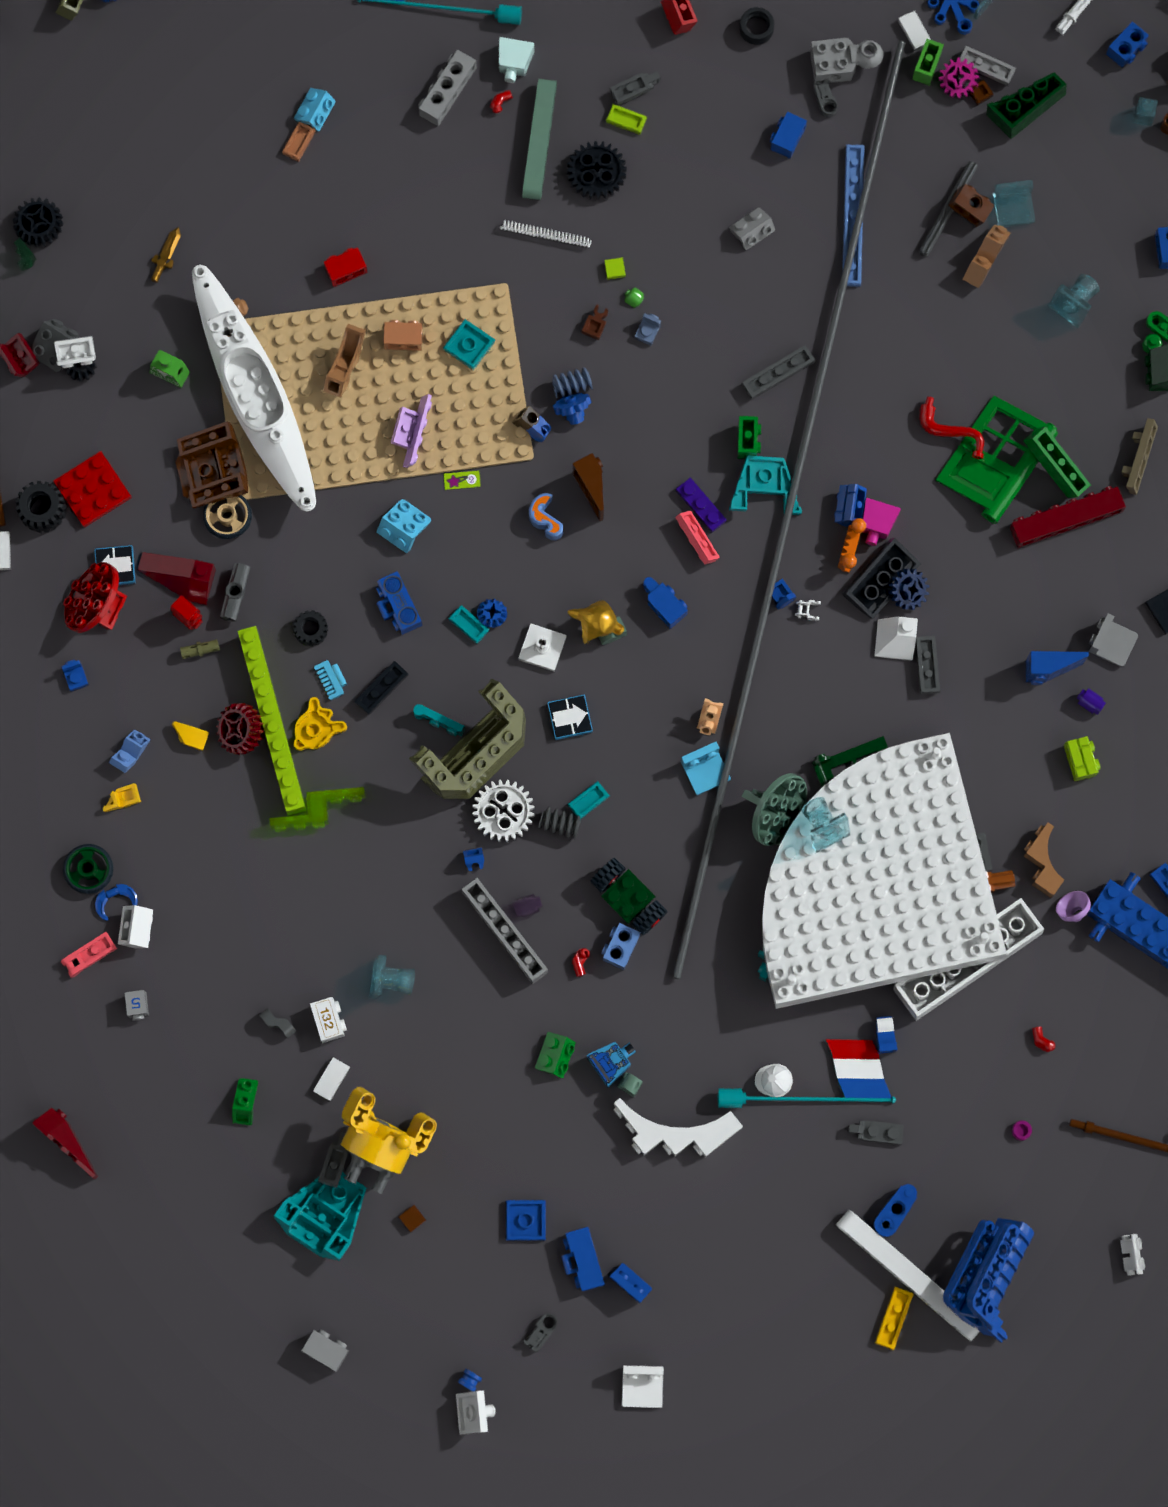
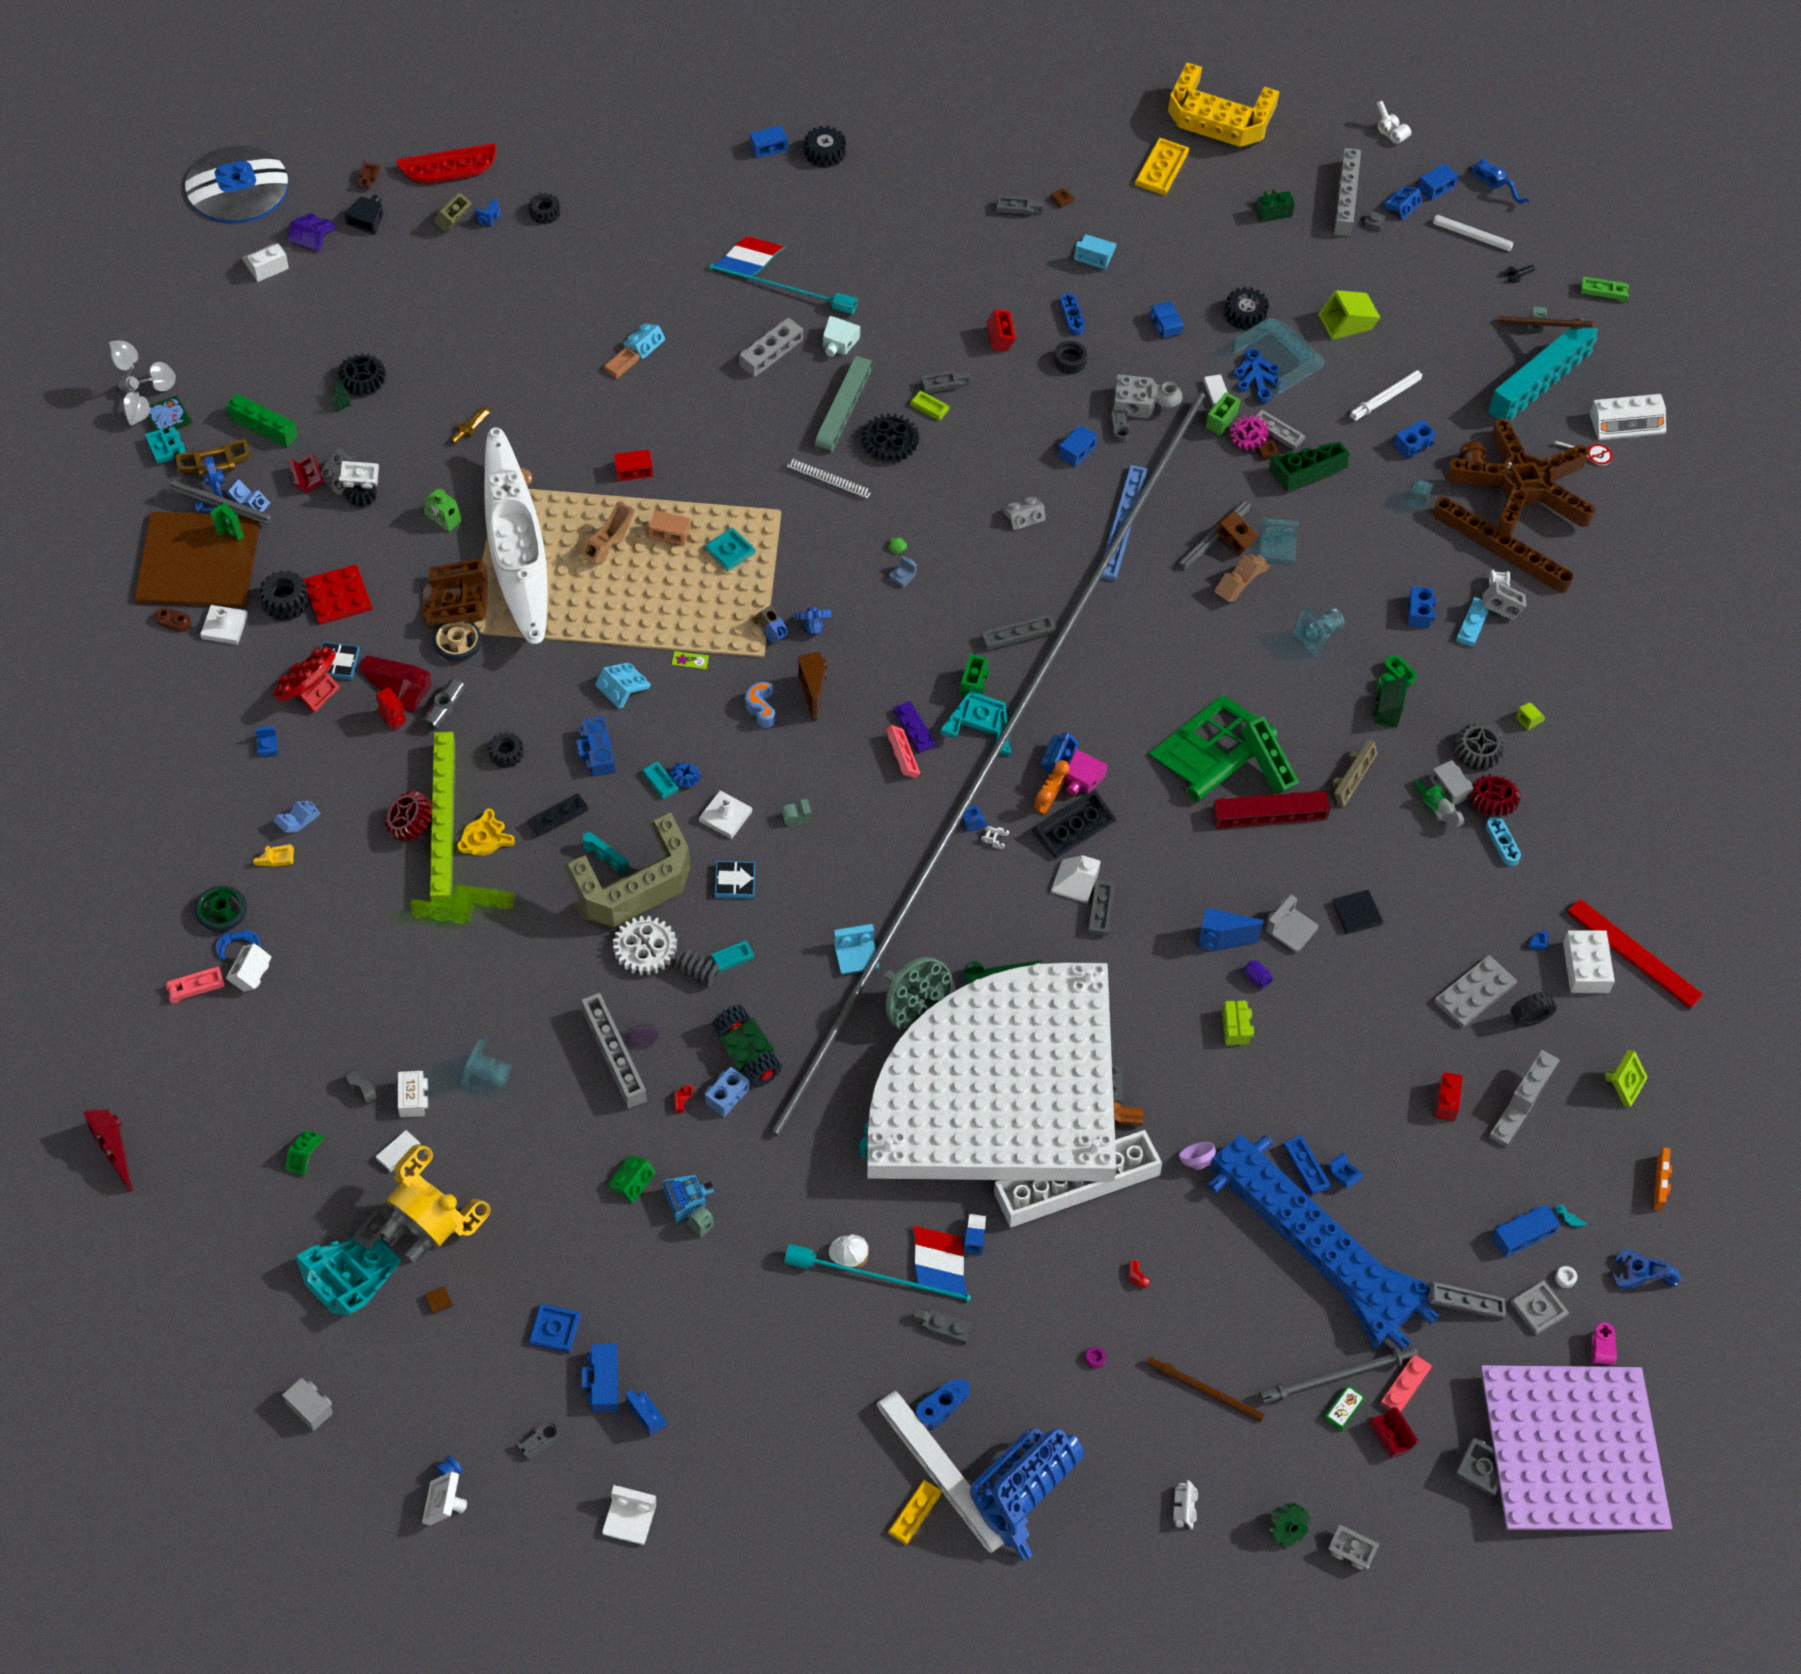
camera: 10 degrees right, 20 degrees down
(136, 1004) = (226, 1038): light grey brick -> none
(190, 735) = (360, 816): yellow slope -> none
(199, 649) = (393, 745): olive pin -> none
(334, 675) = (515, 798): medium azure piece -> none
(409, 429) = (650, 603): lavender bracket -> none
(473, 856) = (598, 979): blue tile -> none
(499, 99) = (820, 365): red arm -> none
(571, 382) = (818, 598): sand blue piece -> none
(594, 324) = (854, 559): copper plate -> none
(597, 621) = (785, 795): pearl gold piece -> none
(615, 268) = (885, 518): lime tile -> none
(649, 1134) = (762, 1288): white arch -> none
(664, 603) = (856, 800): blue hinge -> none
(709, 717) = (873, 904): light nougat hips -> none
(826, 828) = (959, 1012): clear light blue plant -> none
(917, 586) = (1106, 835): dark blue gear -> none
(929, 425) = (1152, 703): red animal -> none
(1048, 879) = (1176, 1123): medium nougat arch -> none

